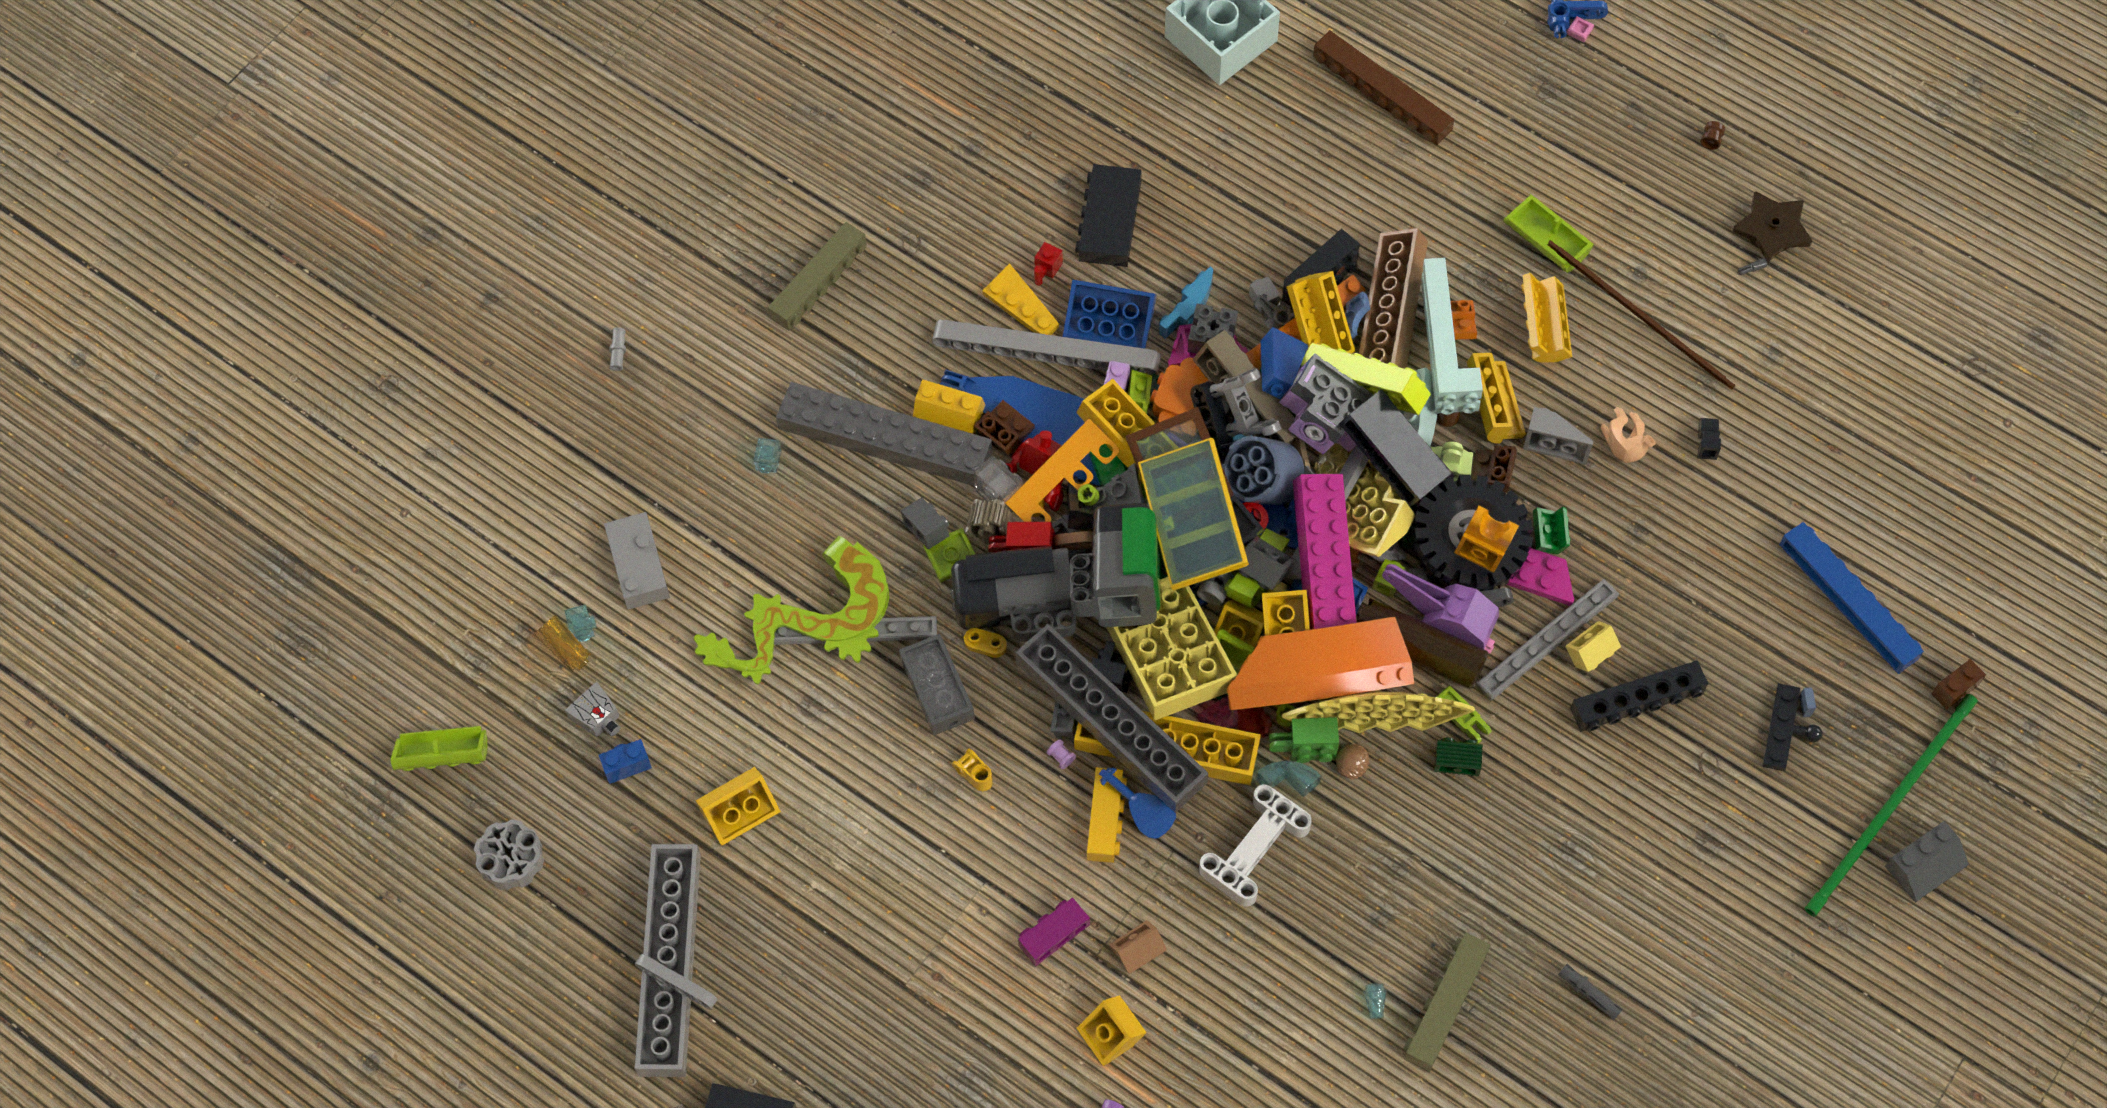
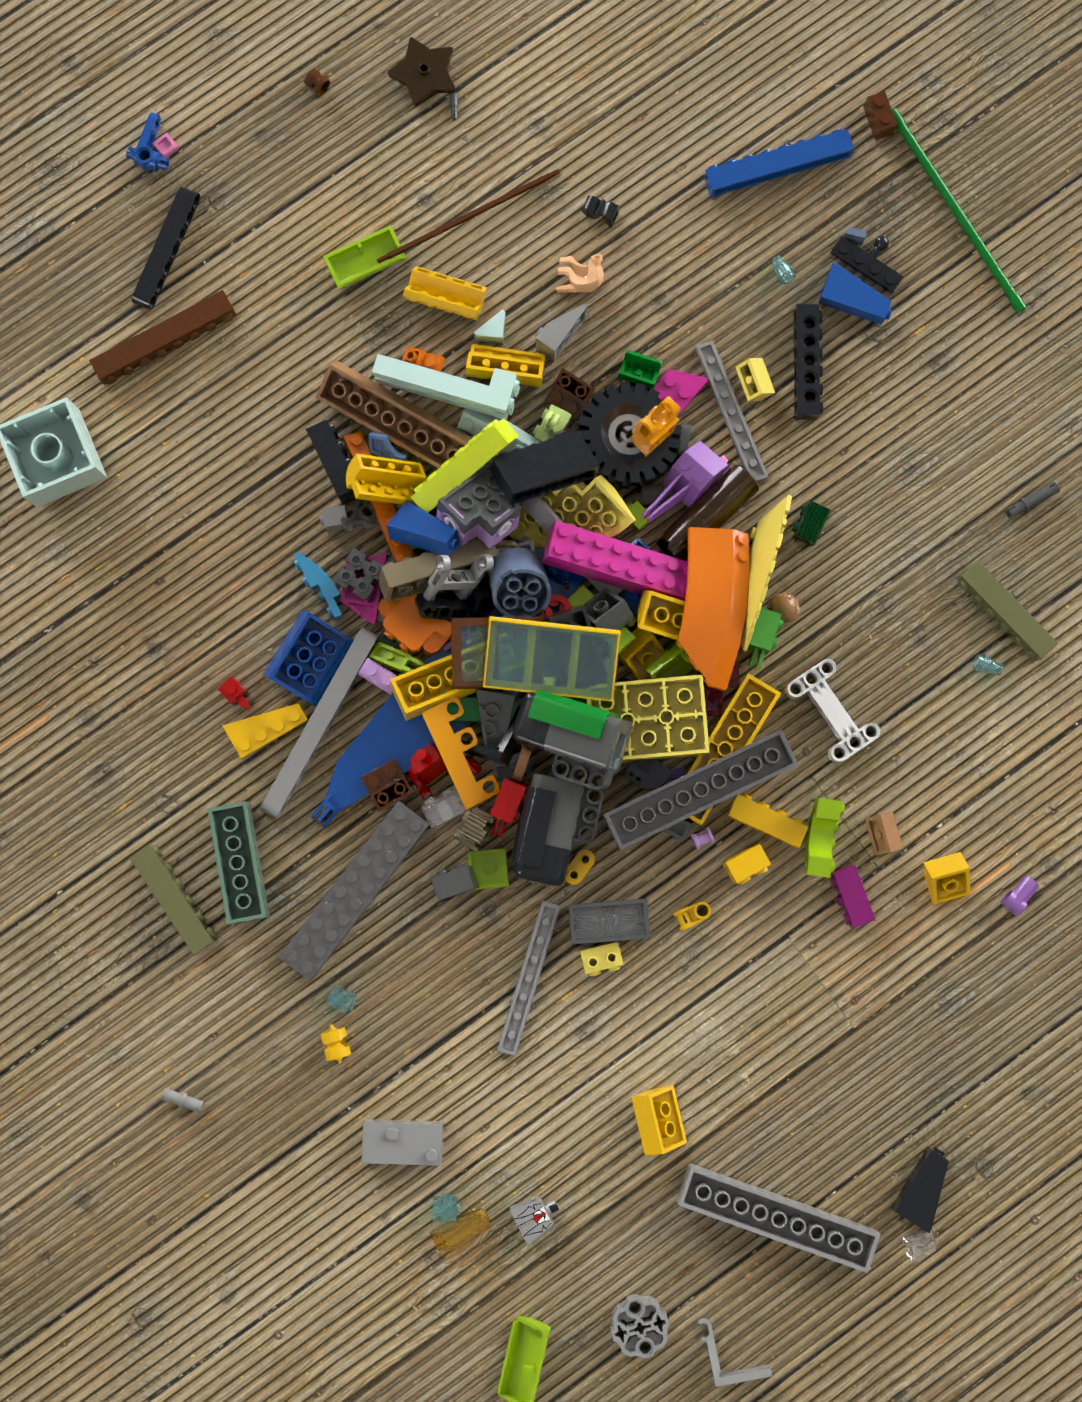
camera: 75 degrees left, 20 degrees up
(488, 947) = (730, 1377): none -> light grey hinge
(625, 761) = (588, 1204): blue brick -> none
(676, 981) = (809, 1220): light grey beam -> none
(721, 464) = (335, 1043): none -> yellow wheel
(841, 630) = (532, 982): lime animal -> none
(874, 318) = (238, 862): none -> sand green brick
(895, 692) = (601, 957): none -> light yellow brick
(948, 406) = (353, 828): yellow slope -> none
(1048, 802) = (746, 863): none -> yellow piece
(1085, 489) = (487, 743): lime bush -> none
(1108, 875) = (819, 836): none -> lime brick
(1109, 215) = (205, 621): black brick -> none
(1147, 810) = (775, 789): blue piece -> none
(1299, 775) = (787, 653): clear light blue brick -> none
(1467, 721) = (762, 507): lime hinge -> none
(1475, 61) = (166, 248): none -> black beam
(1530, 376) = (492, 330): none -> light aqua slope
(1730, 641) = (783, 270): none -> clear light blue cone
(1736, 717) = (853, 296): none -> blue slope
(1928, 861) = (1011, 205): dark grey slope -> none

